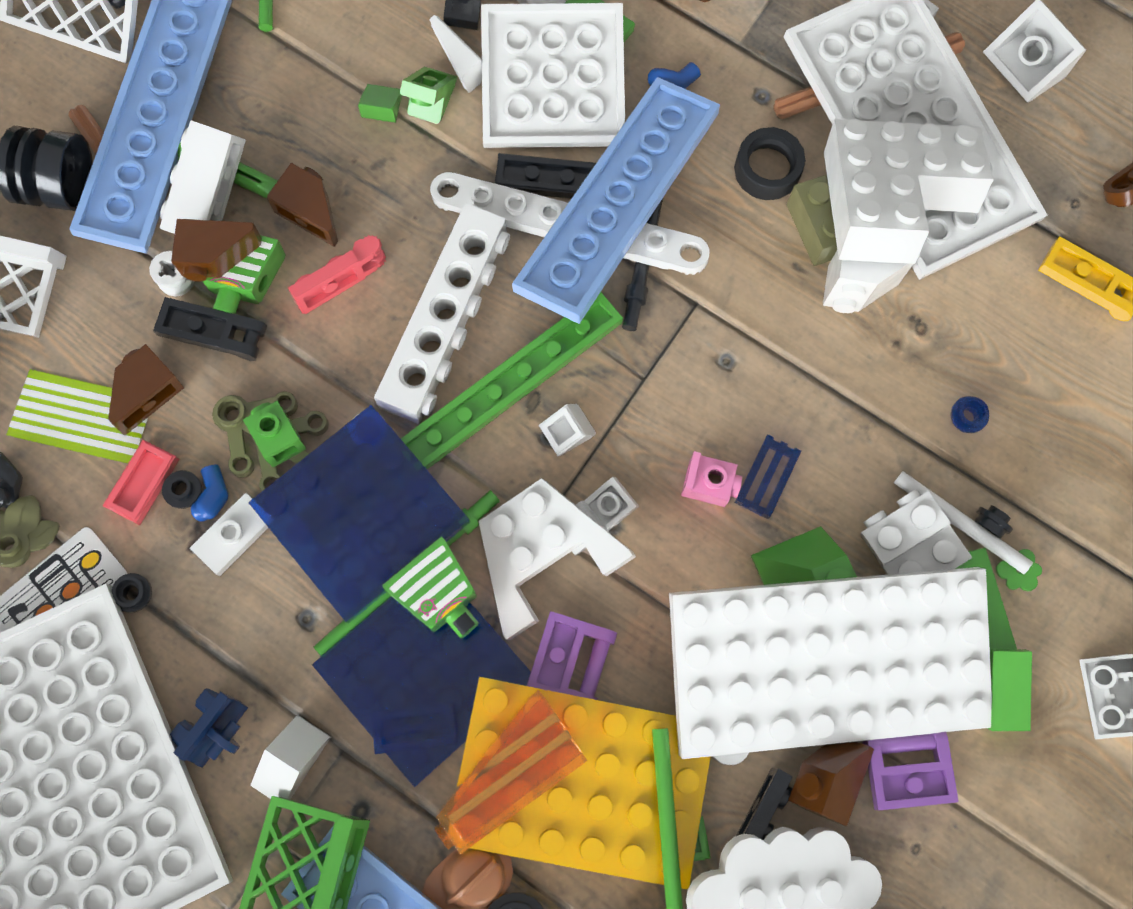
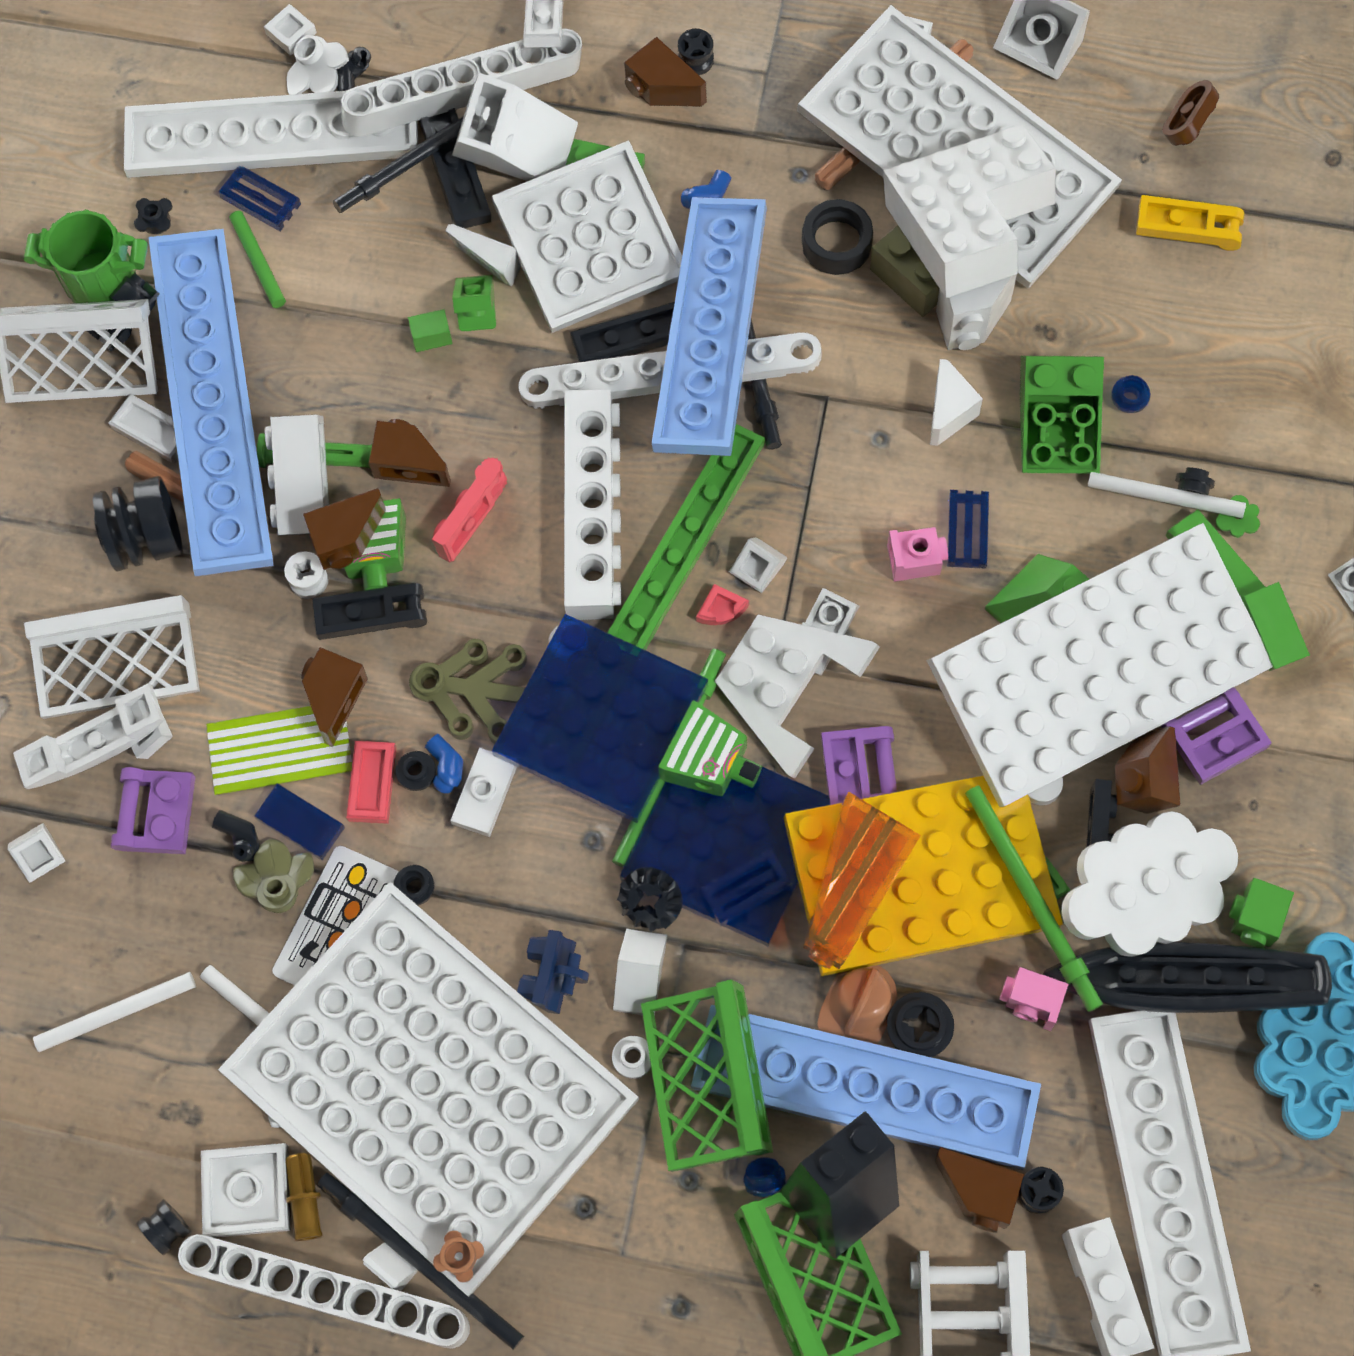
camera: 15 degrees left, 5 degrees down
(63, 491) = (299, 821): none -> clear blue tile
(100, 83) = (146, 427): none -> white tile
(231, 837) = (631, 1070): none -> white plate
(274, 433) = (484, 678): bright green brick -> none
(332, 688) = (651, 882): none -> black gear
(516, 454) = (721, 607): none -> coral tile
(806, 357) = (954, 403): none -> white slope
(899, 406) = (1061, 413): none -> bright green slope
(914, 537) = (1127, 524): white plate -> none

